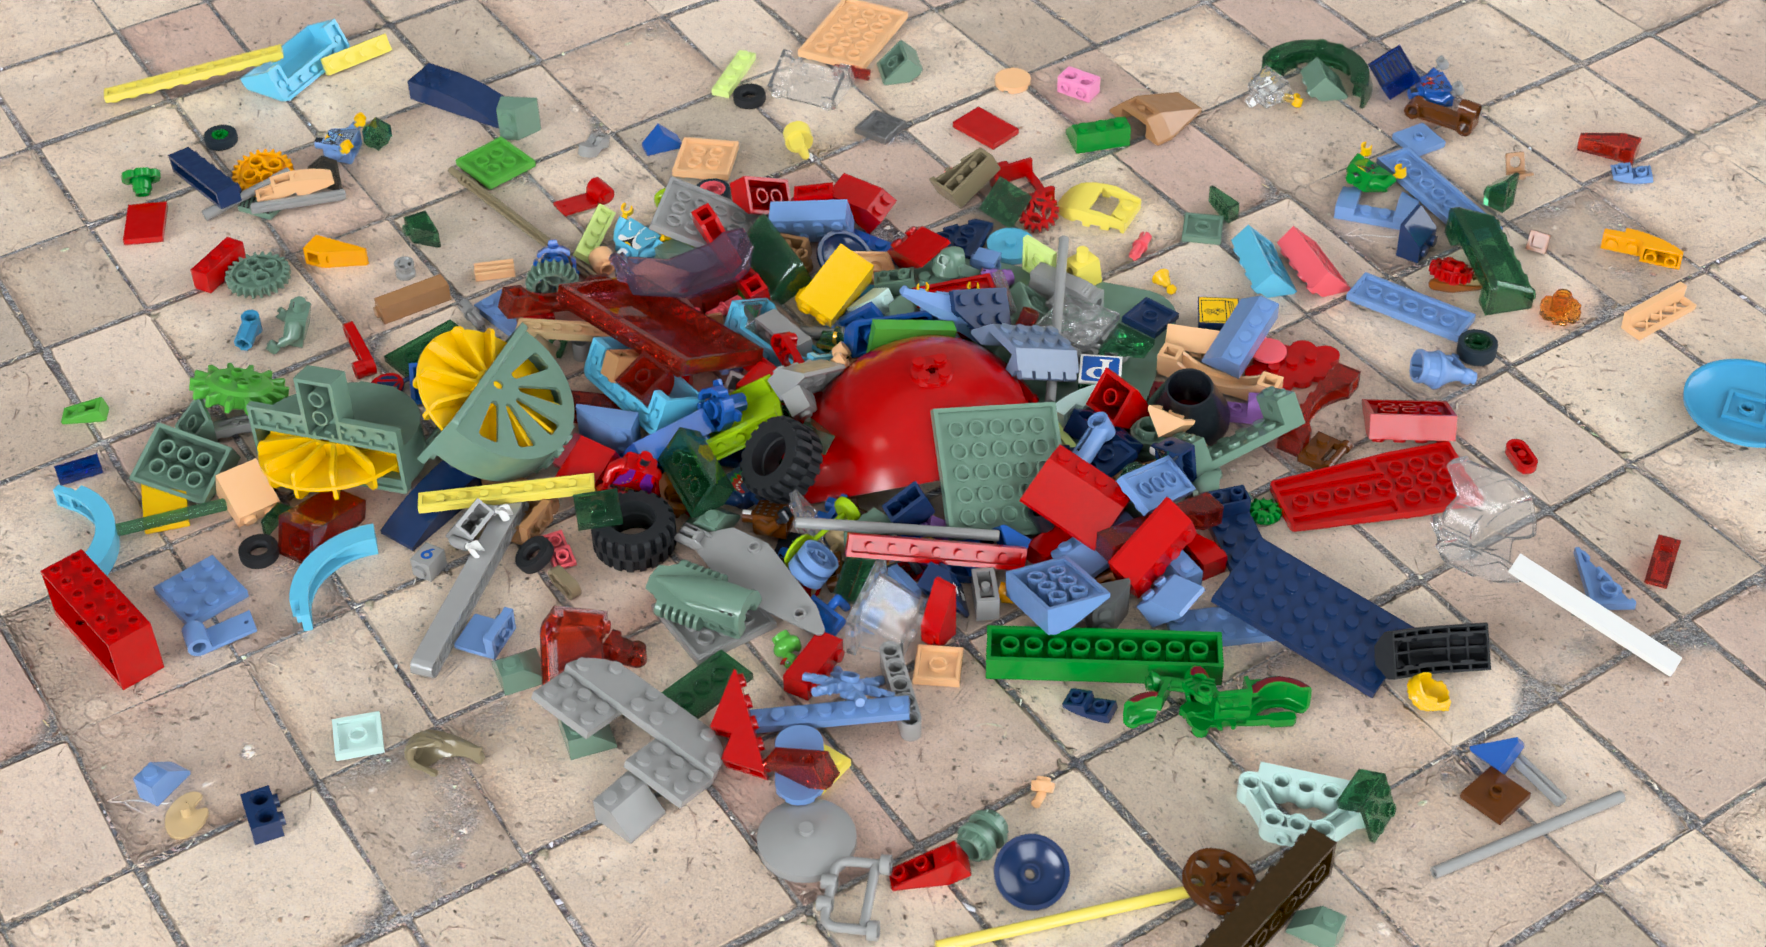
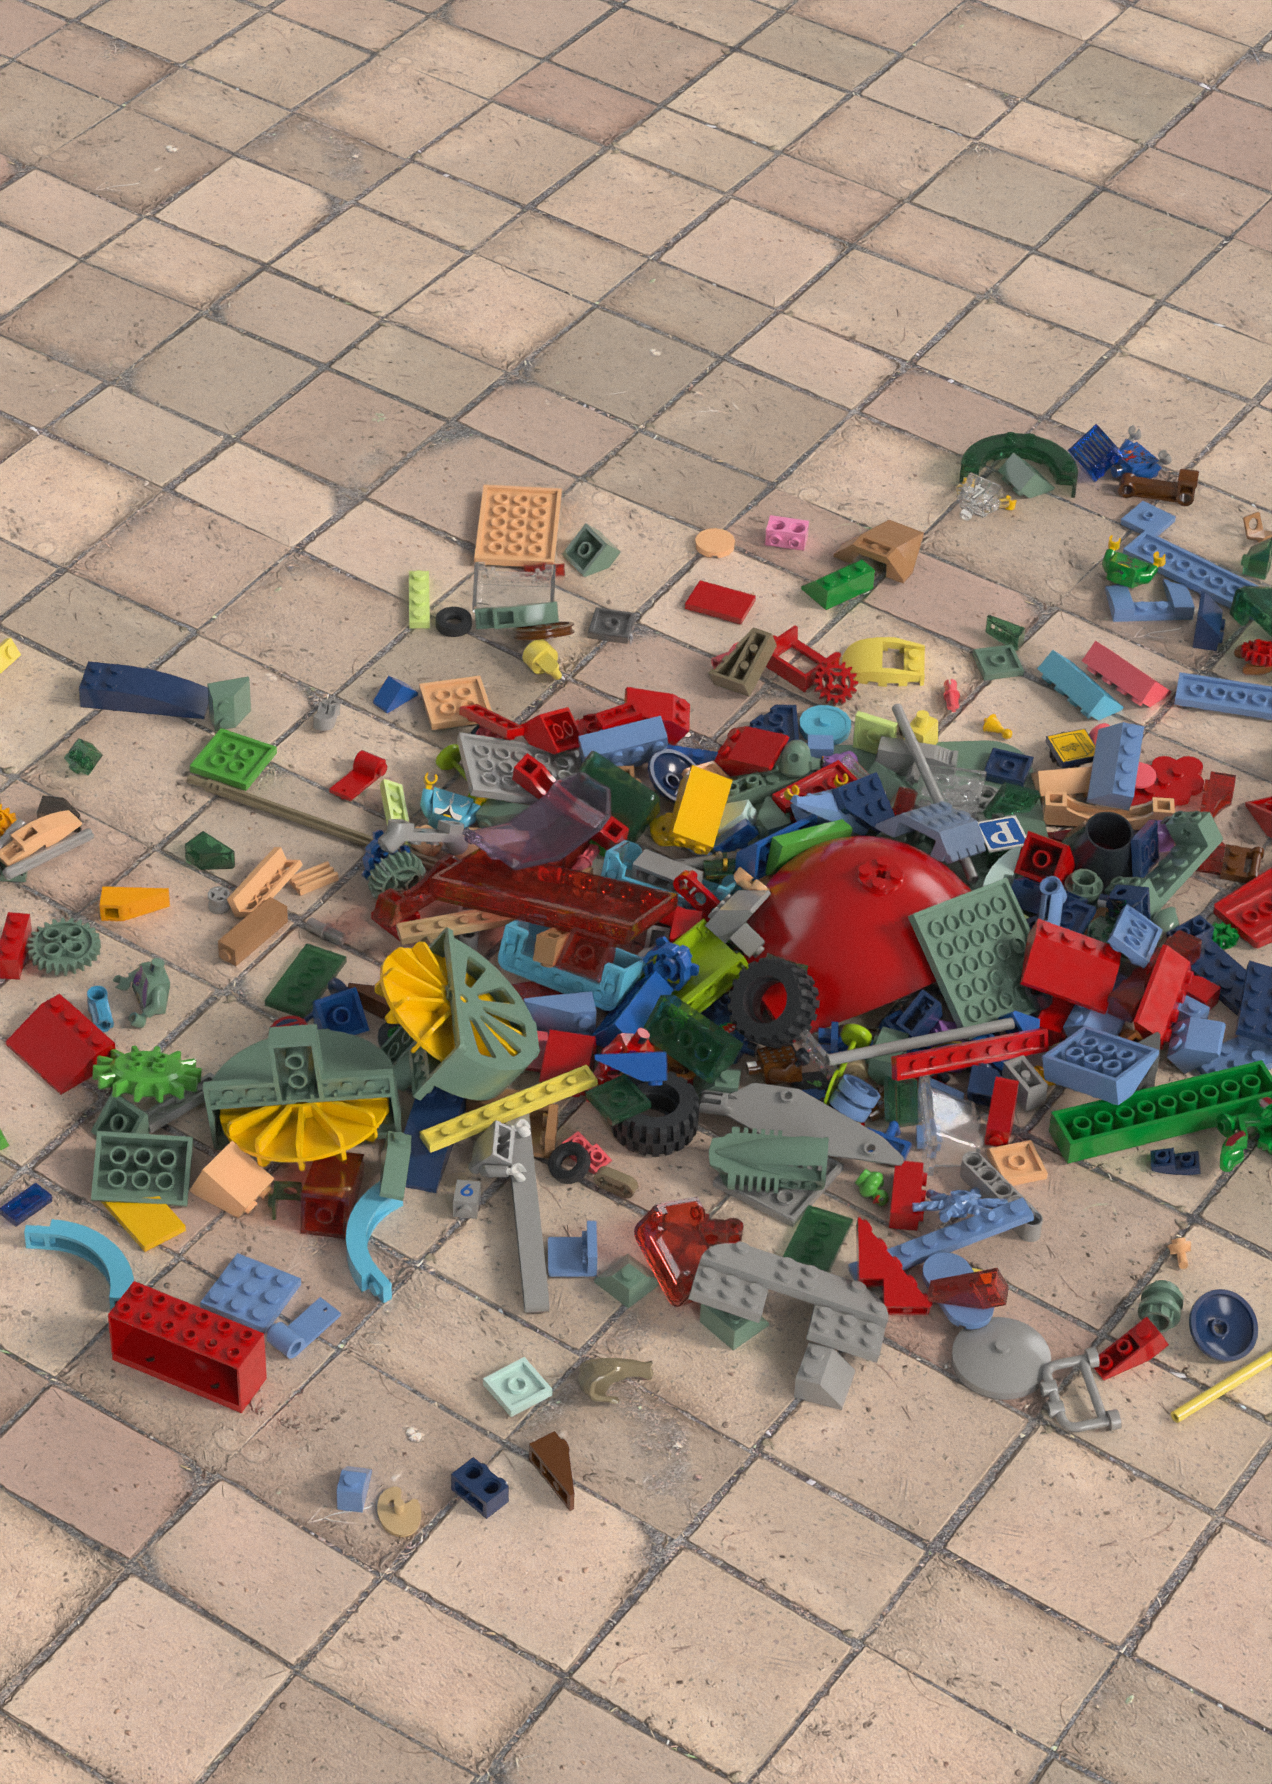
camera: 25 degrees left, 0 degrees up
(171, 517) = (170, 1225): clear green axle -> none
(195, 346) = (60, 1044): none -> red slope
(258, 541) = (277, 1225): black tyre -> none
(341, 814) = (552, 1461): none -> reddish brown slope
(343, 143) = (49, 774): torso -> none
(365, 365) = (251, 1012): red beam -> none
(377, 515) = (394, 1165): none -> sand green slope
(448, 261) = (265, 879): none -> light nougat fence
(489, 310) = (351, 921): medium blue wing -> none
(565, 242) = (401, 831): none -> light grey plate
(629, 484) = (640, 1065): none -> blue slope
(714, 176) = (492, 721): none -> red plate
(799, 100) = (516, 615): none -> sand green slope
(812, 116) = (544, 631): none -> reddish brown wedge
(1005, 202) = (801, 680): clear green bracket -> none
(1168, 422) = (1105, 870): light nougat slope -> none
(1225, 414) = (1145, 849): none -> dark blue tile

